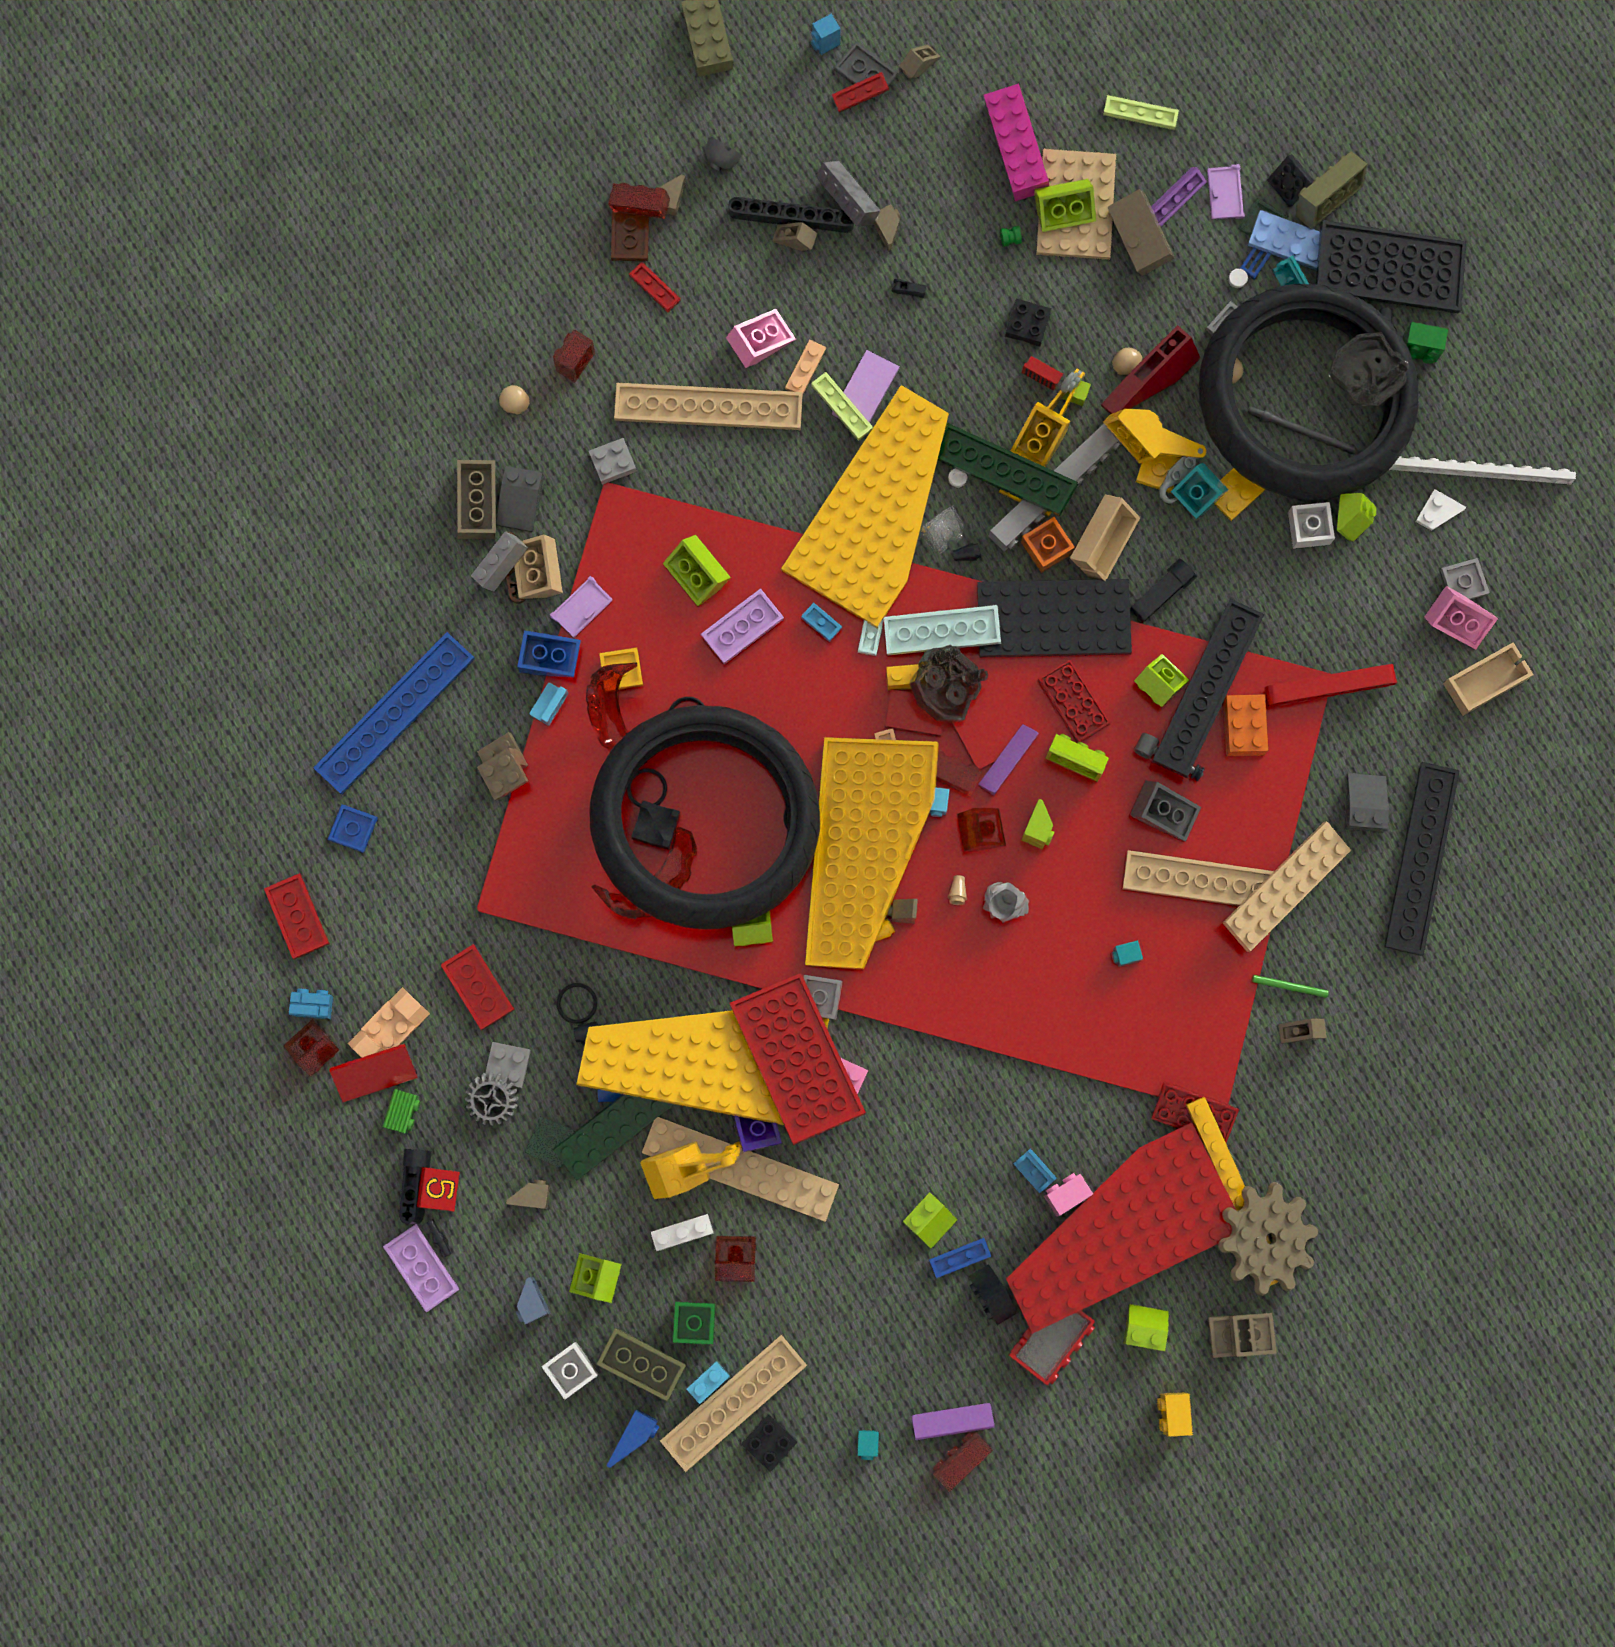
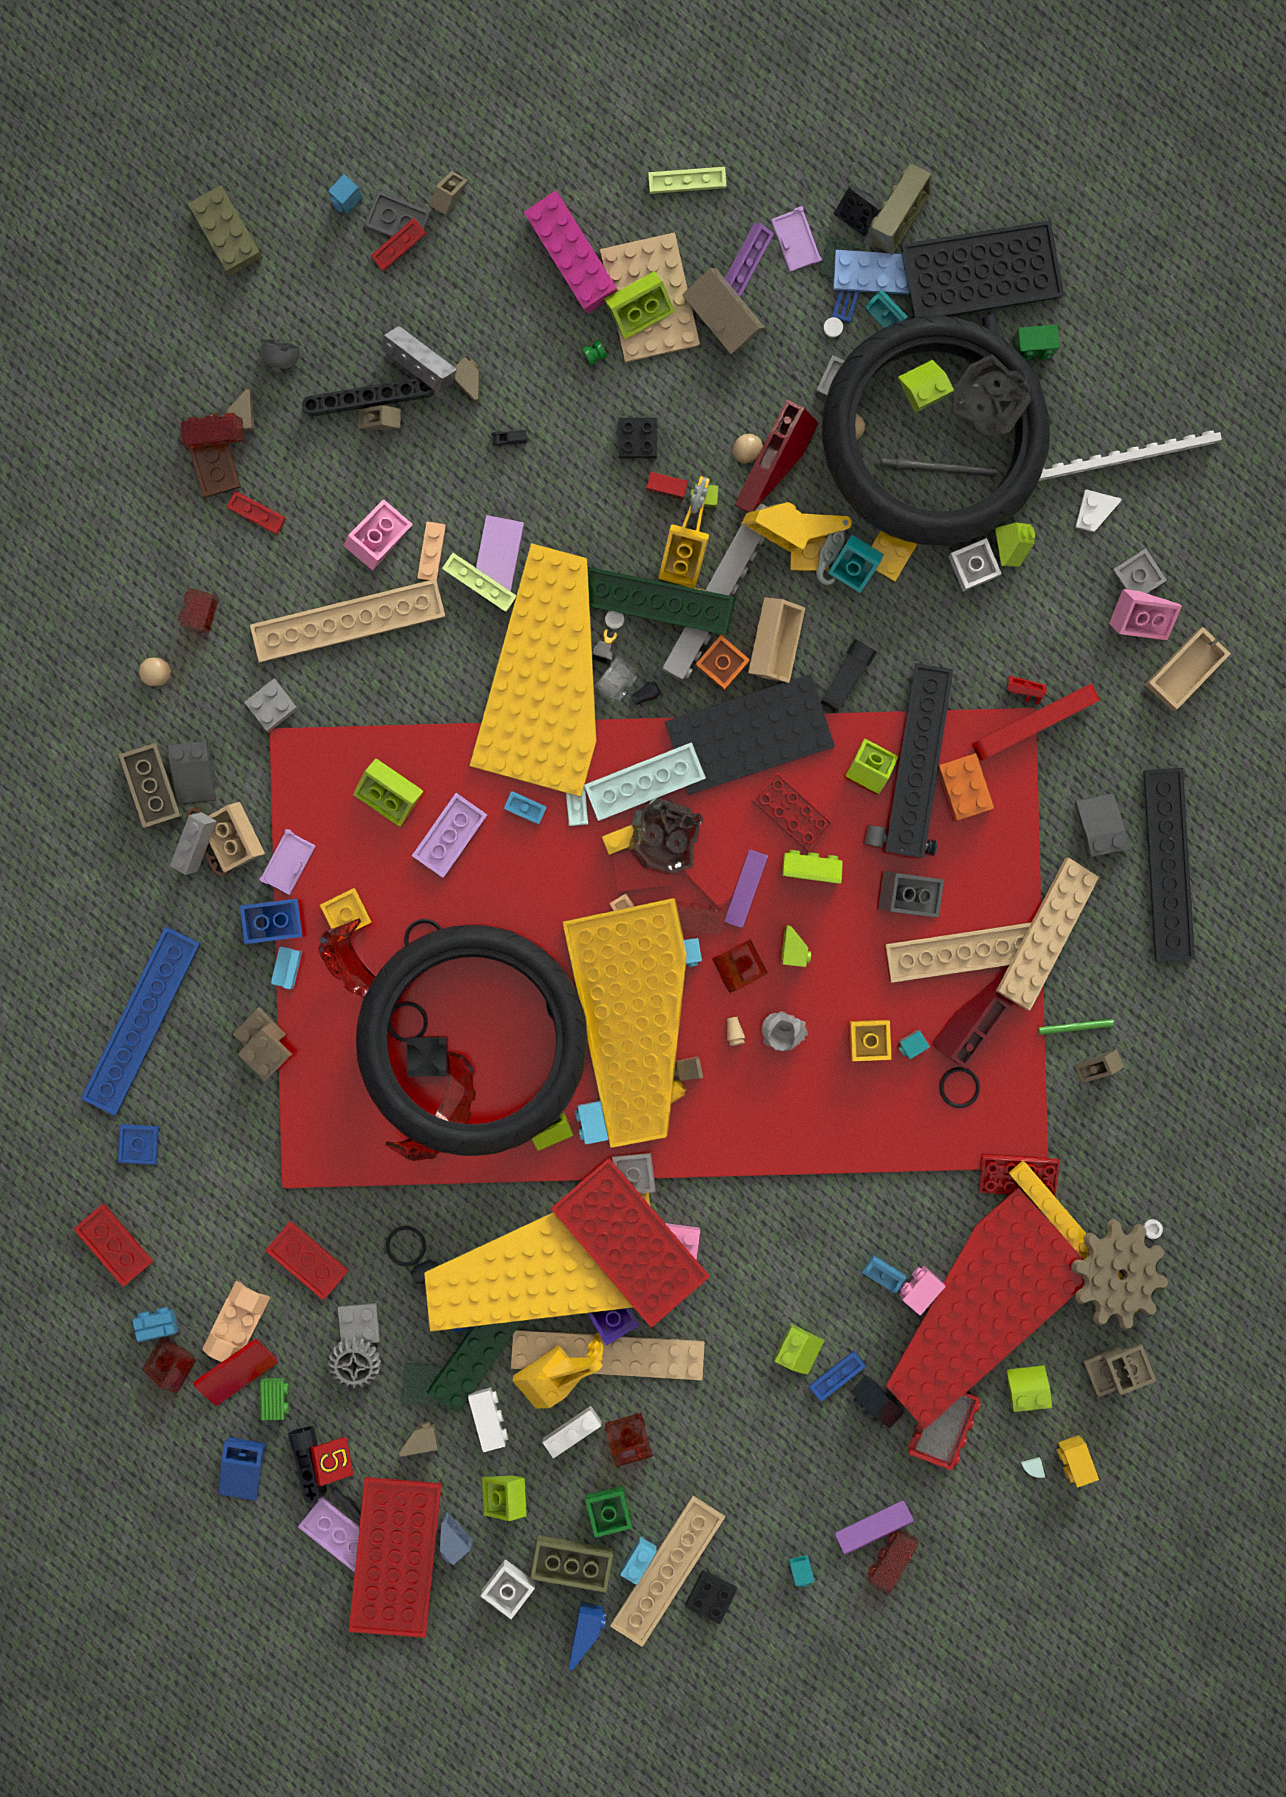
camera: 20 degrees left, 10 degrees up
(347, 1171) = (241, 1468): none -> blue slope
(468, 1305) = (395, 1557): none -> red plate
(603, 1195) = (488, 1419): none -> white brick
(795, 935) = (592, 1122): none -> medium azure brick
(937, 502) = (602, 649): none -> piece
(1086, 936) = (870, 1040): none -> yellow brick
(1129, 1411) = (1034, 1467): none -> light aqua tile
(1155, 1027) = (964, 1104): none -> black tyre
(1190, 952) = (973, 1025): none -> dark red wedge
(1311, 344) = (925, 385): none -> lime slope
(1313, 1207) = (1153, 1229): none -> white tile
(1323, 649) = (1026, 687): none -> red plate

